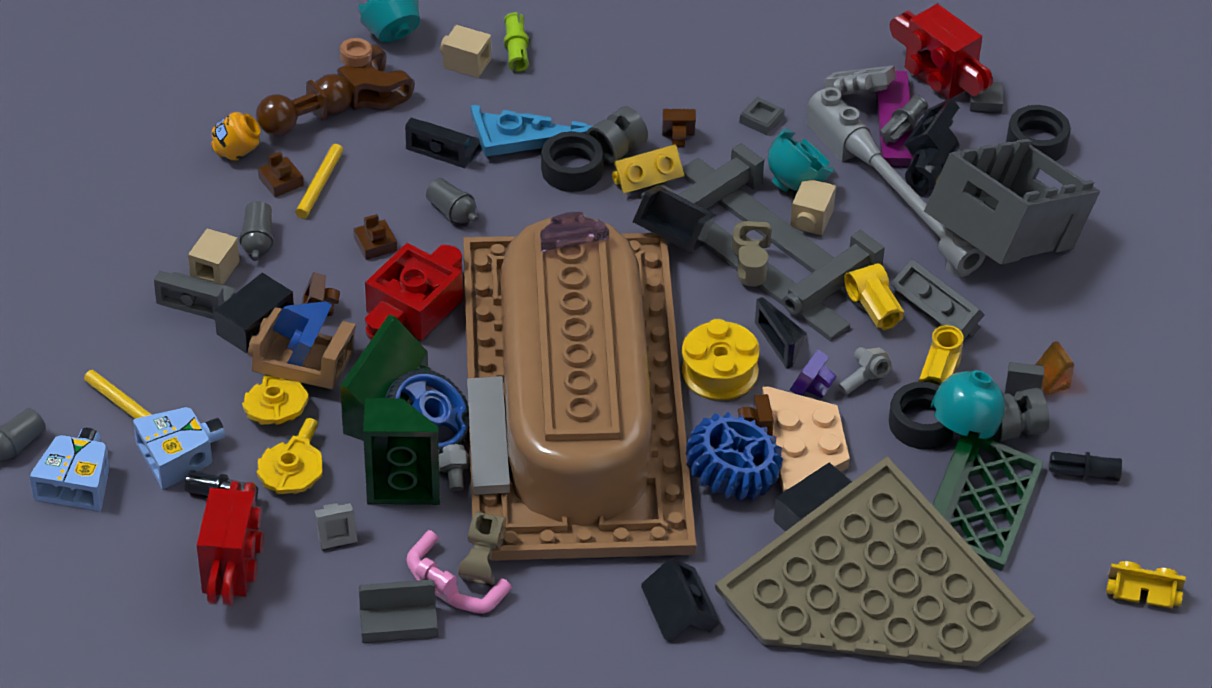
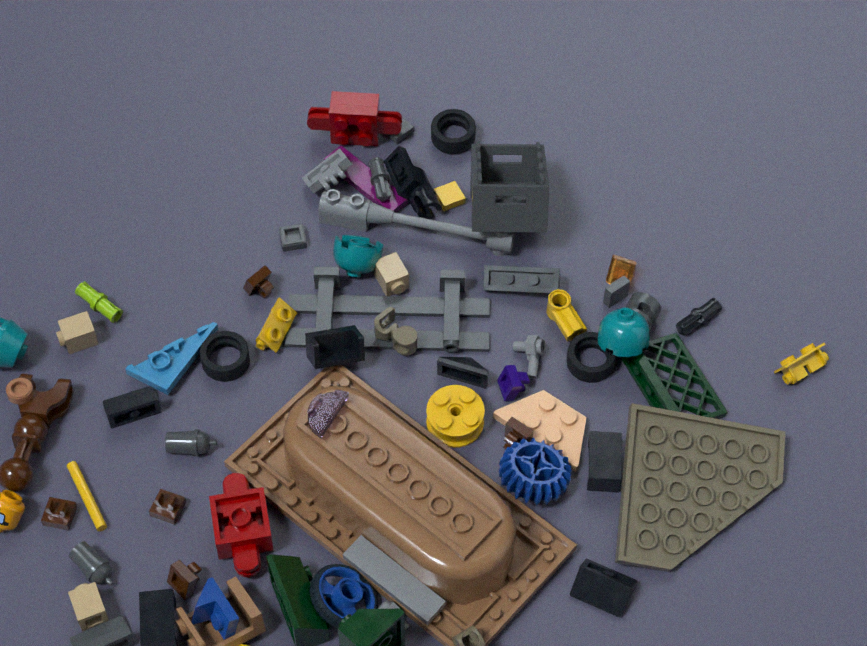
camera: 45 degrees left, 10 degrees up
(619, 133) = (235, 315): dark grey wheel -> none
(872, 289) = (481, 301): yellow piece -> none

